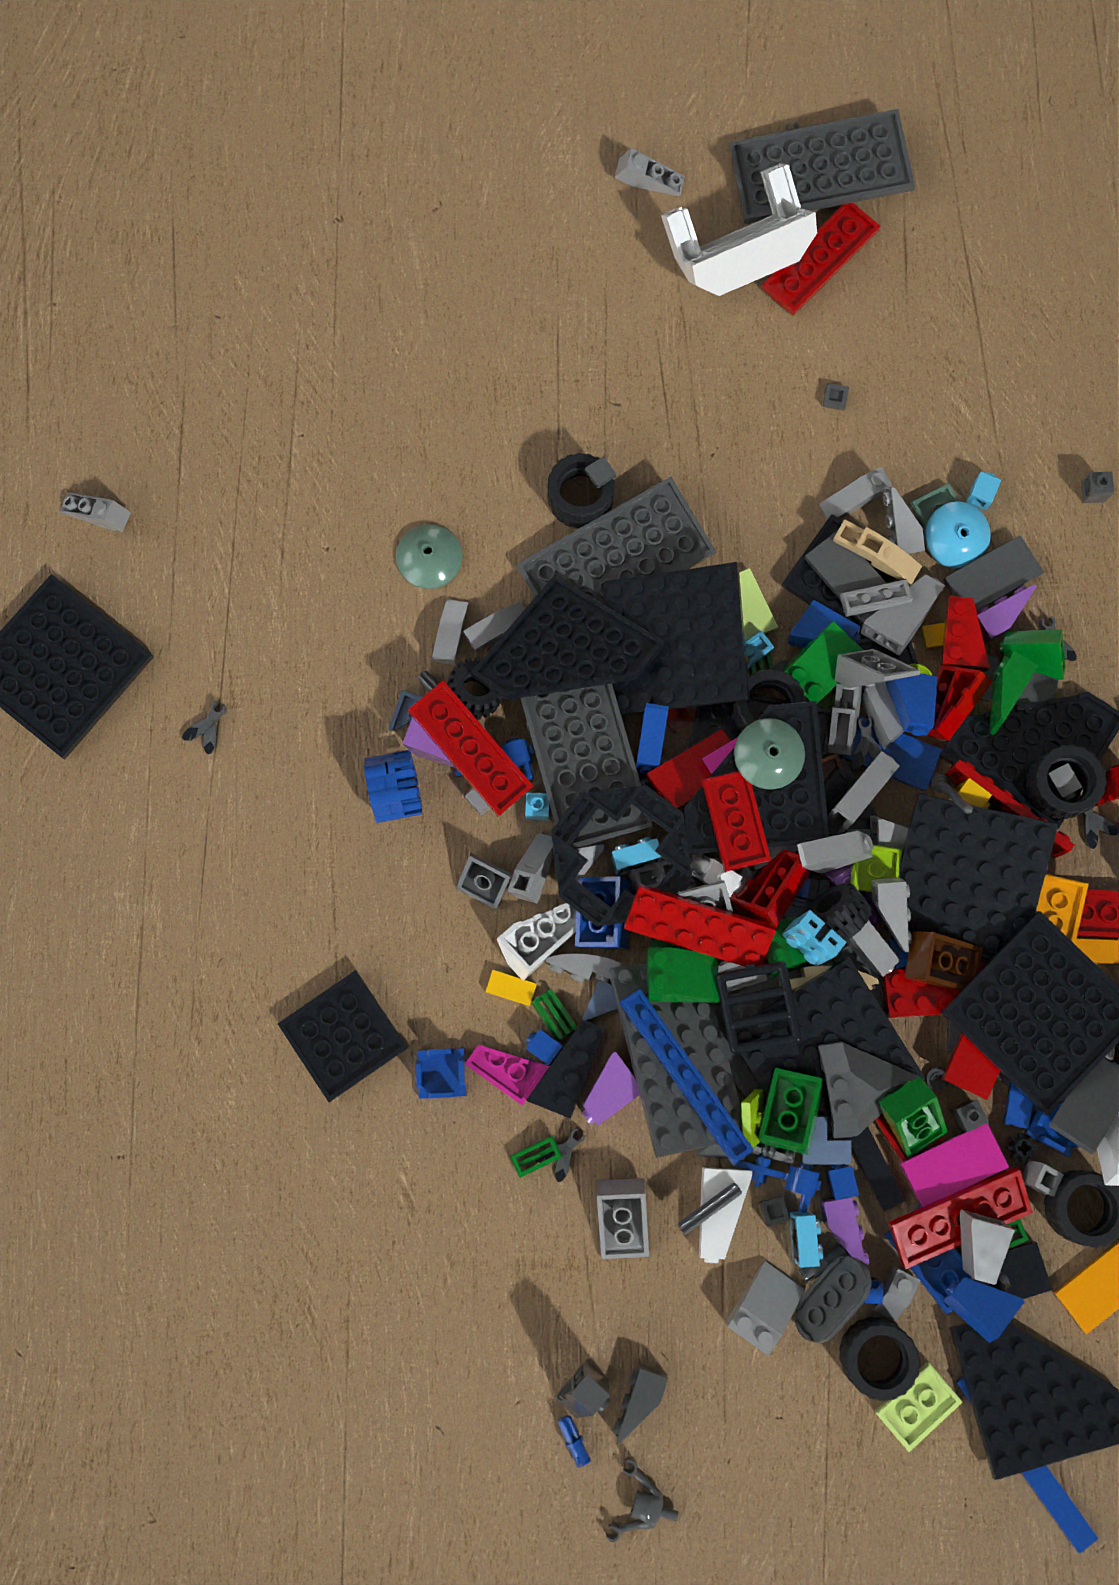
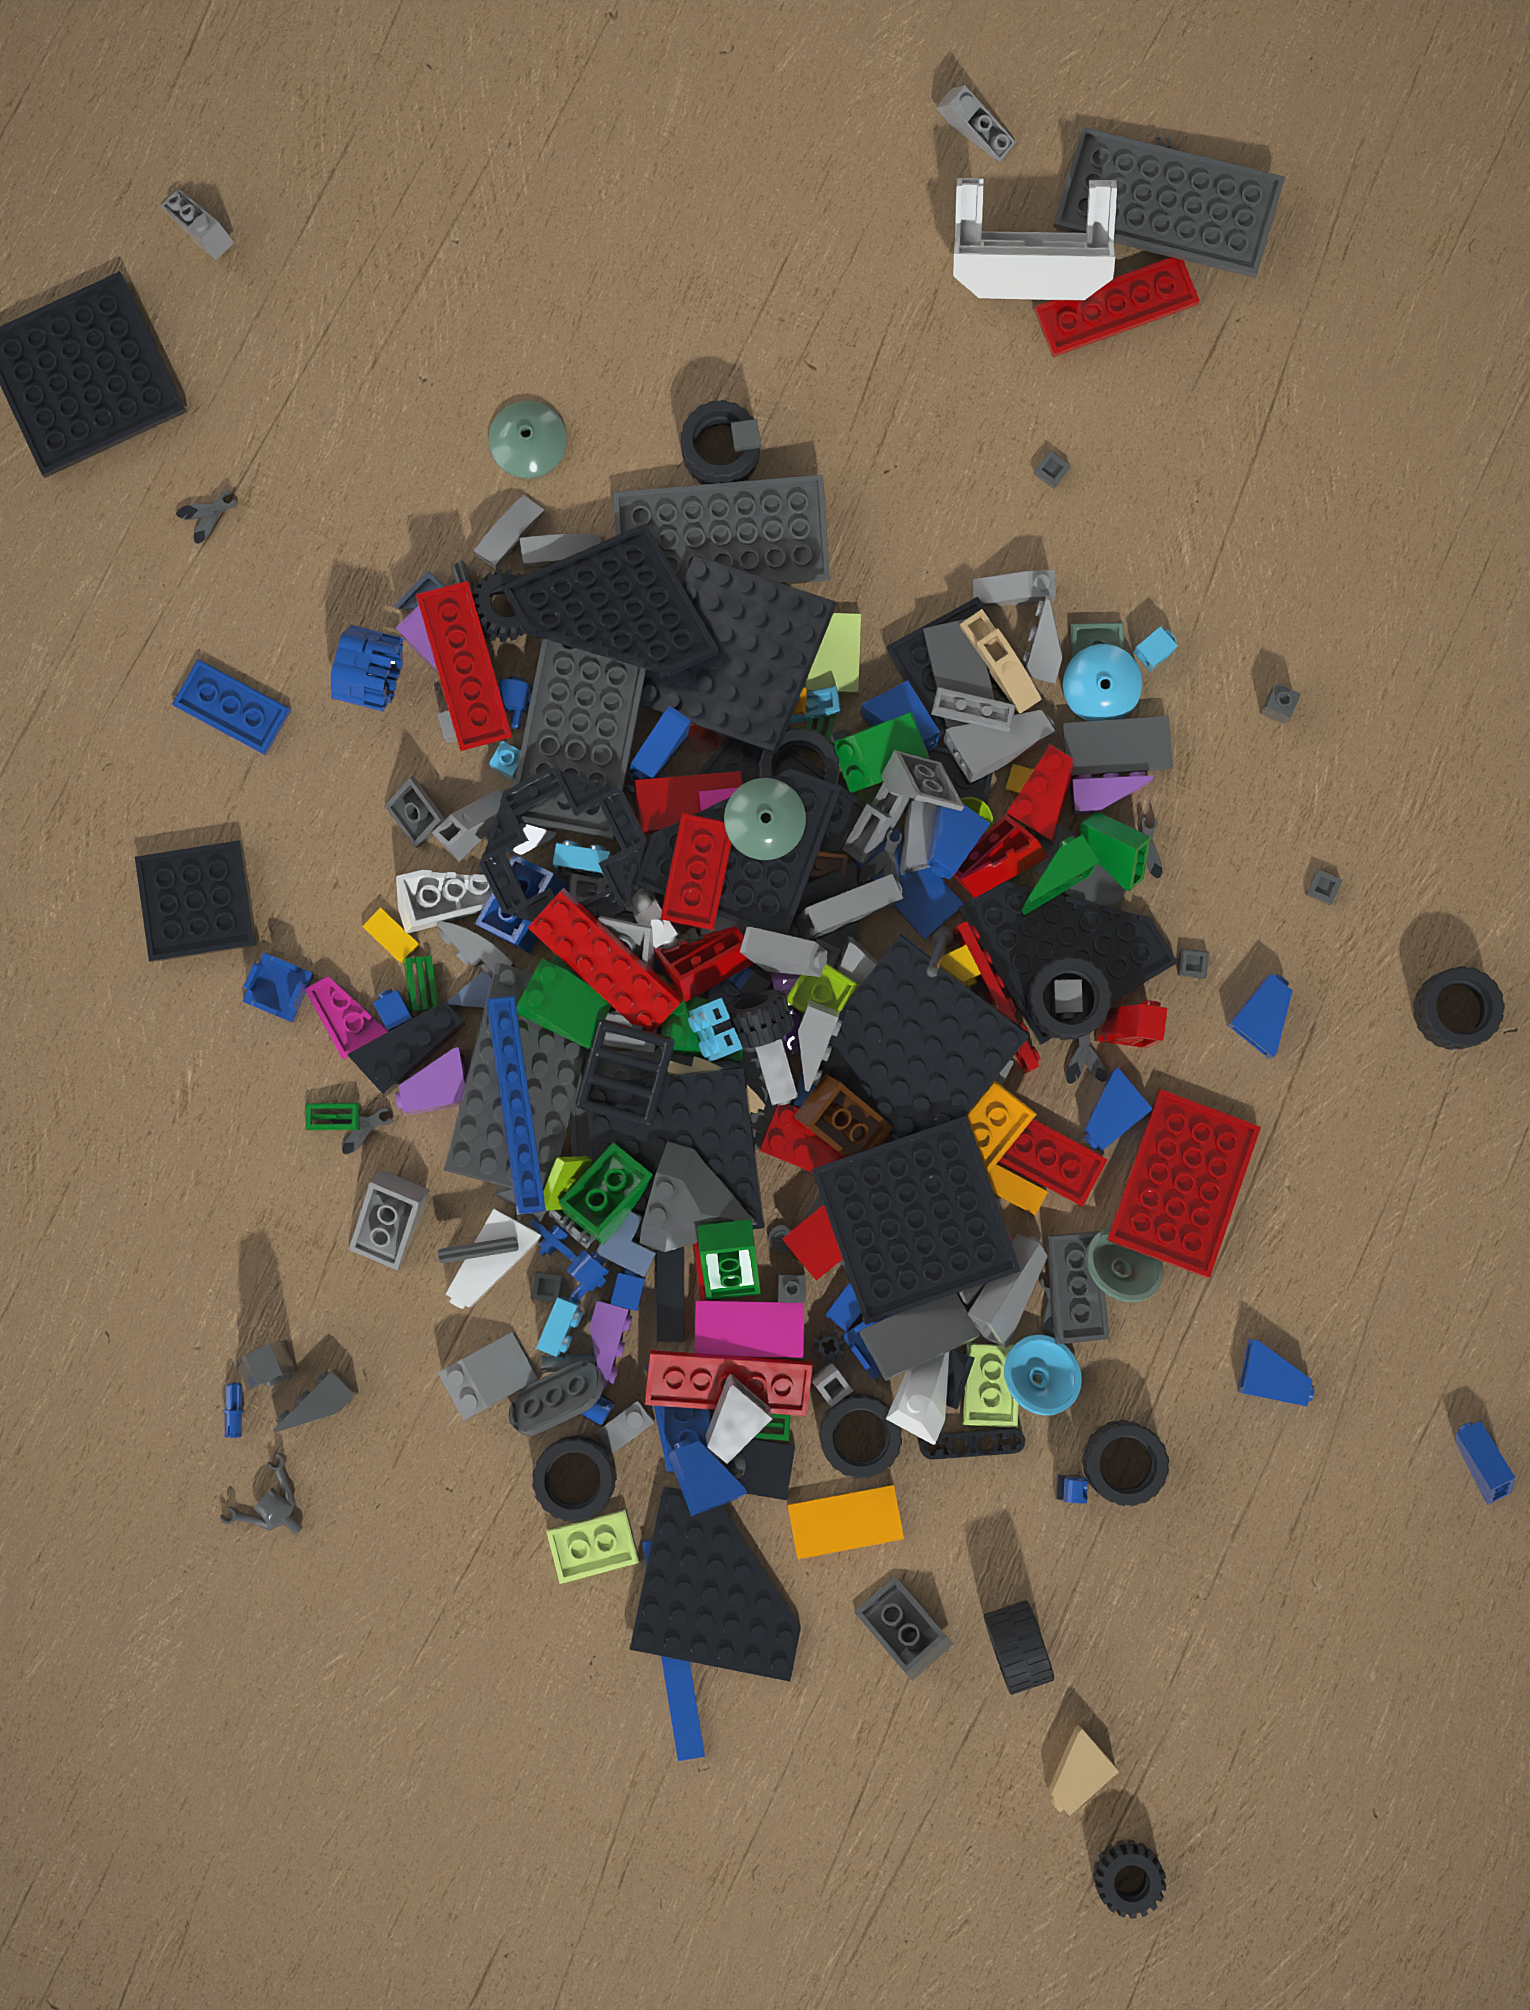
camera: 25 degrees right, 5 degrees up
(297, 868) = (231, 707): none -> blue tile

